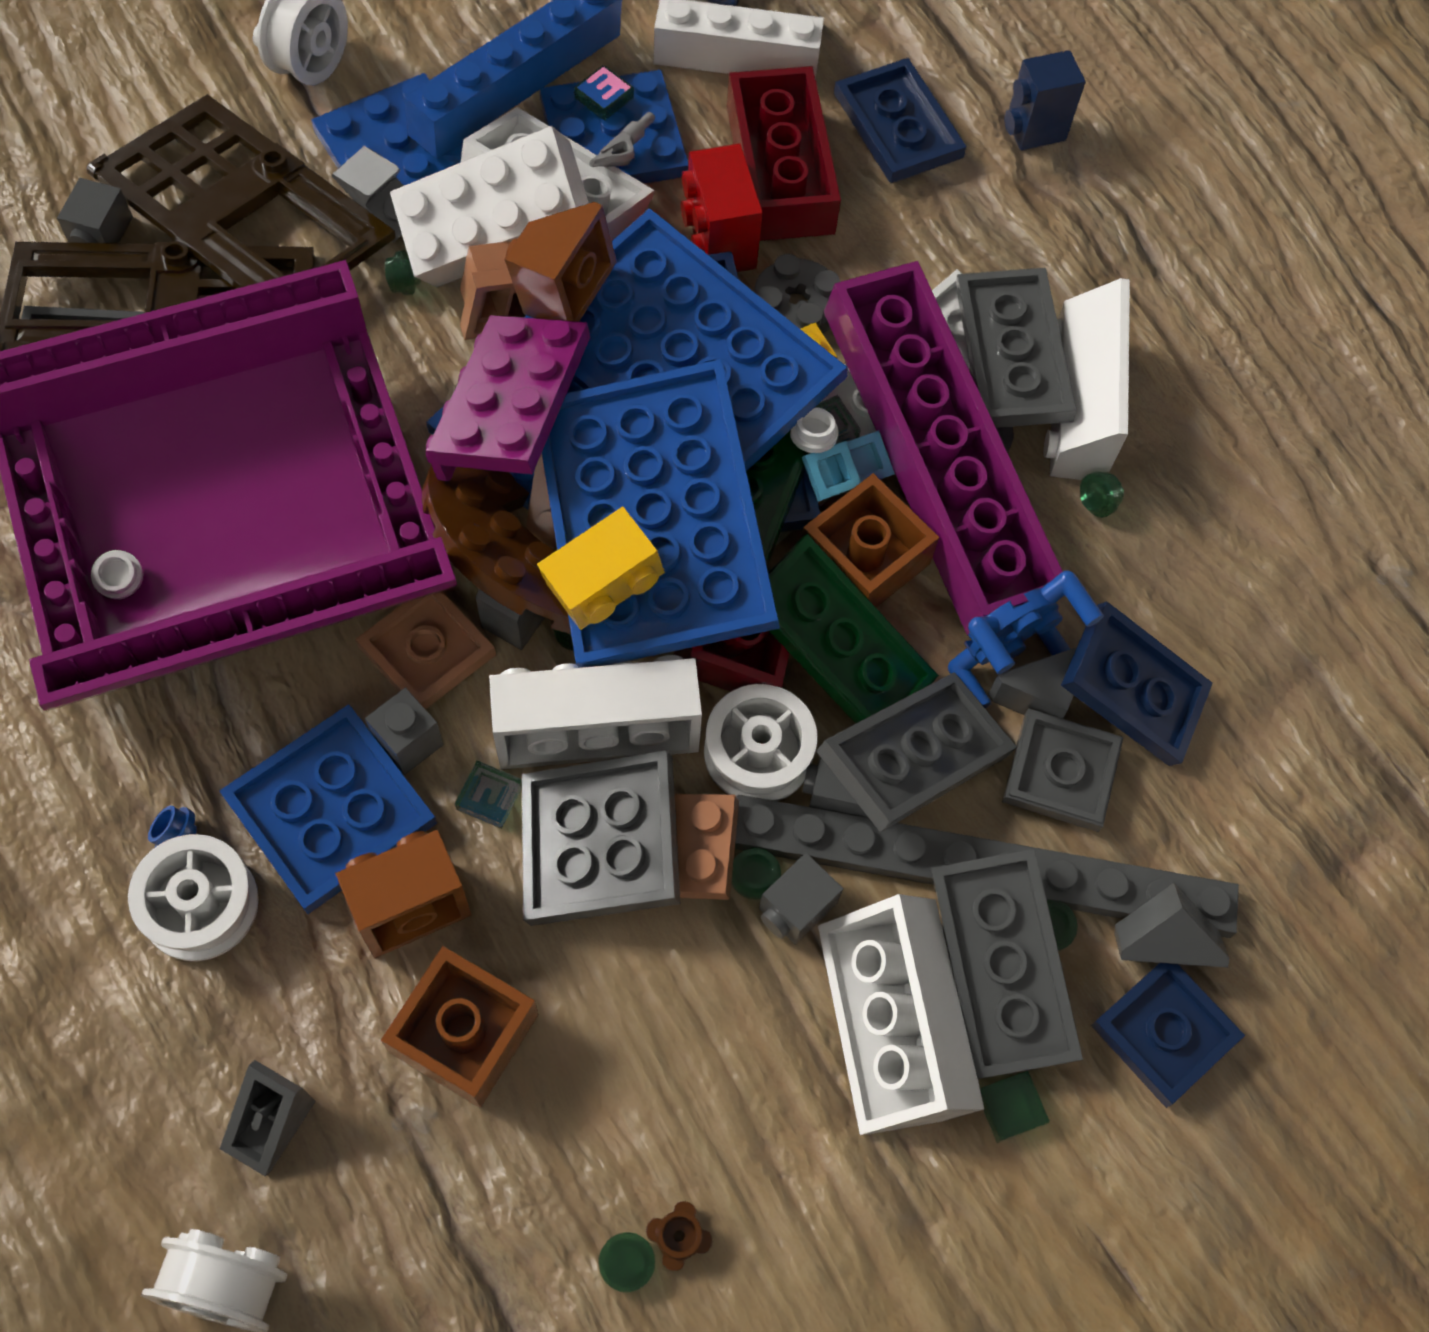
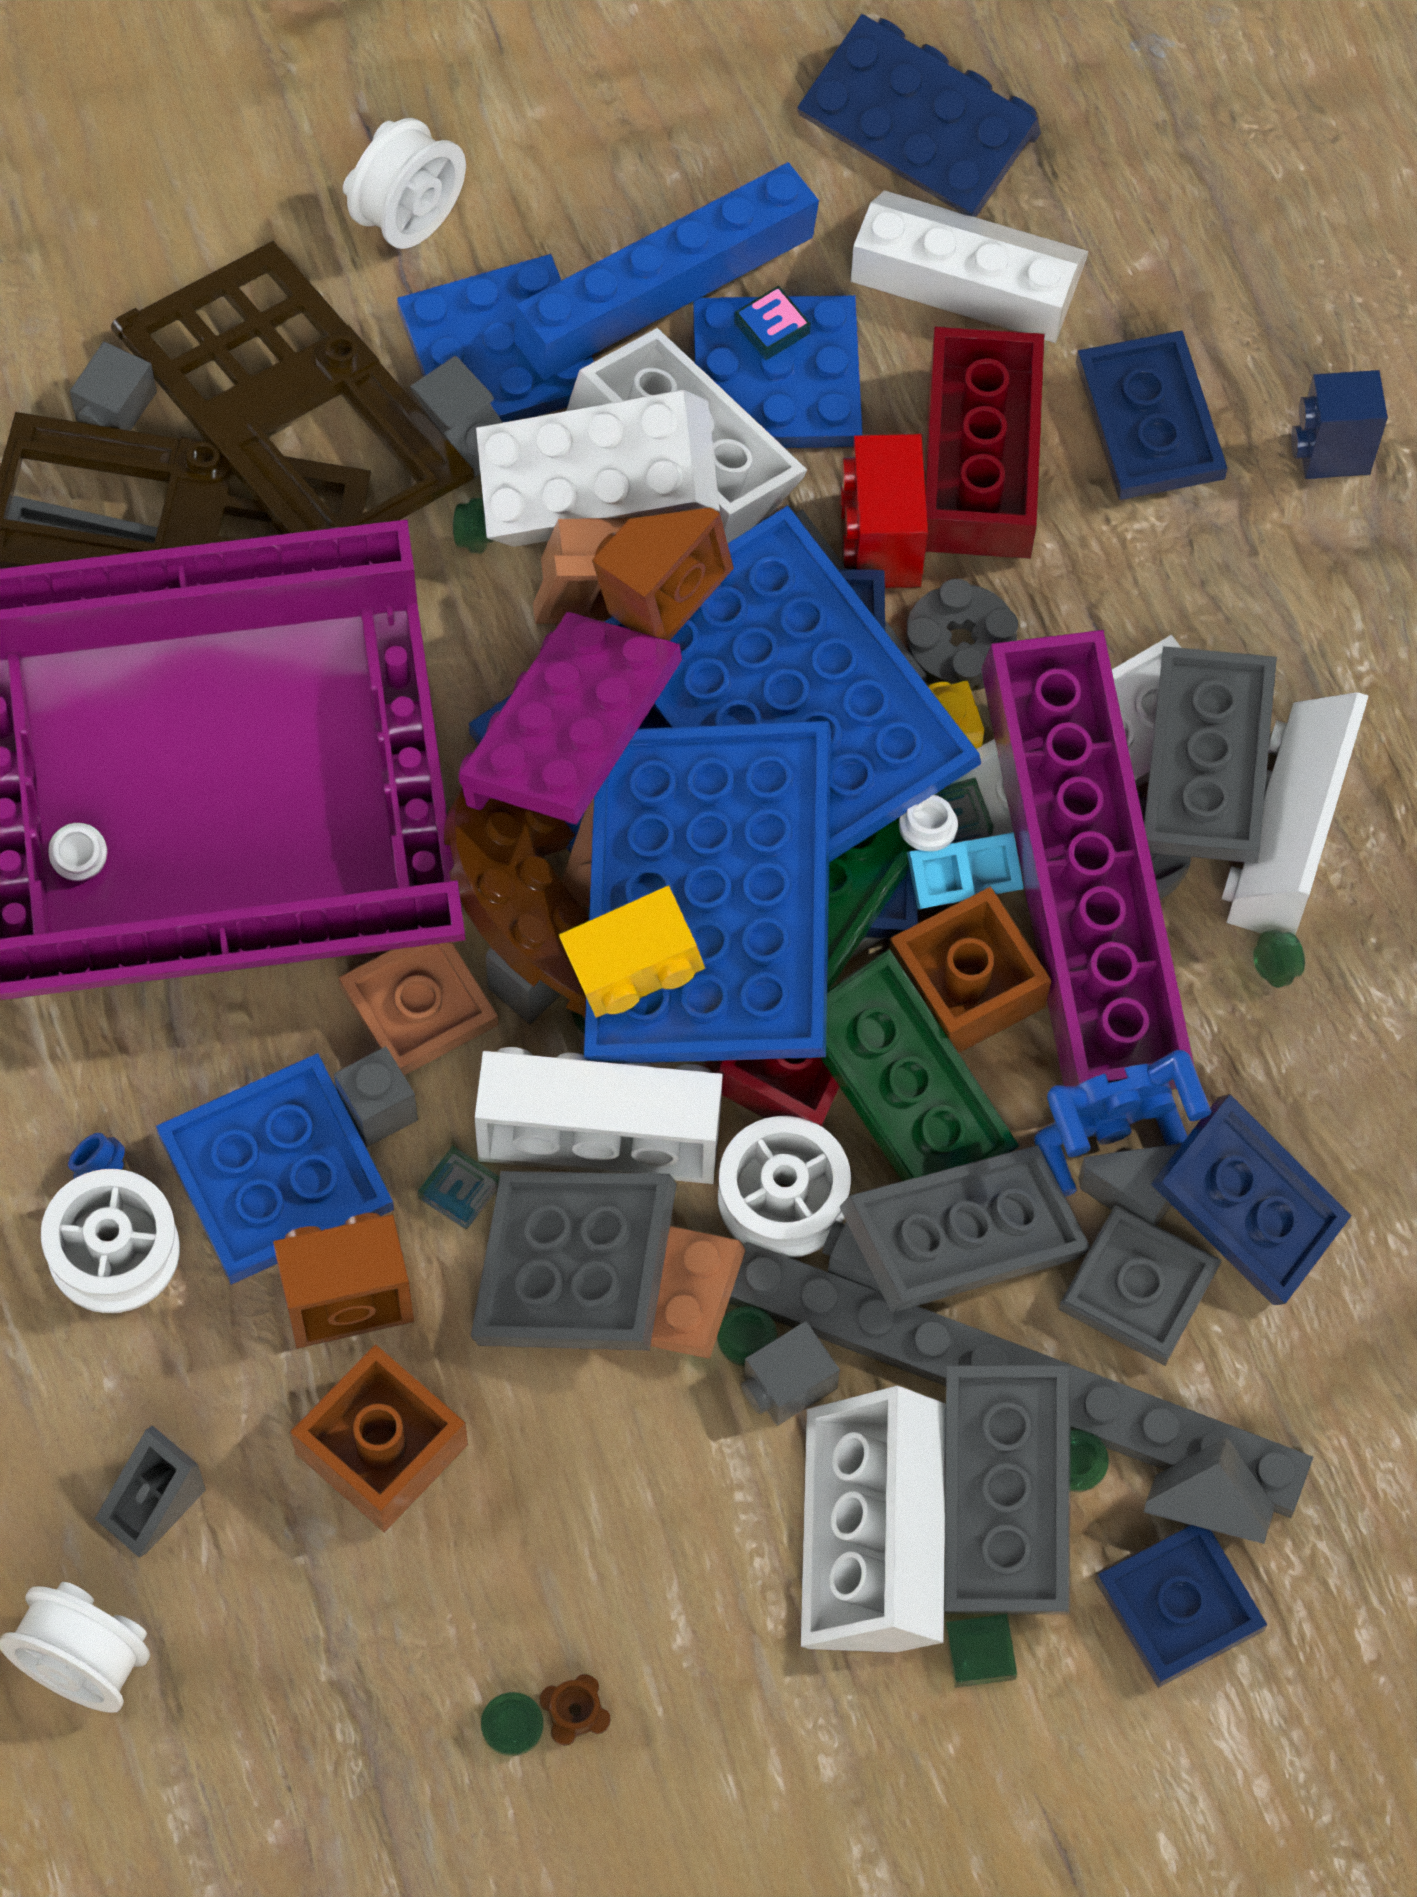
camera: 15 degrees right, 0 degrees up
(620, 149) = (780, 400): light grey hand -> none

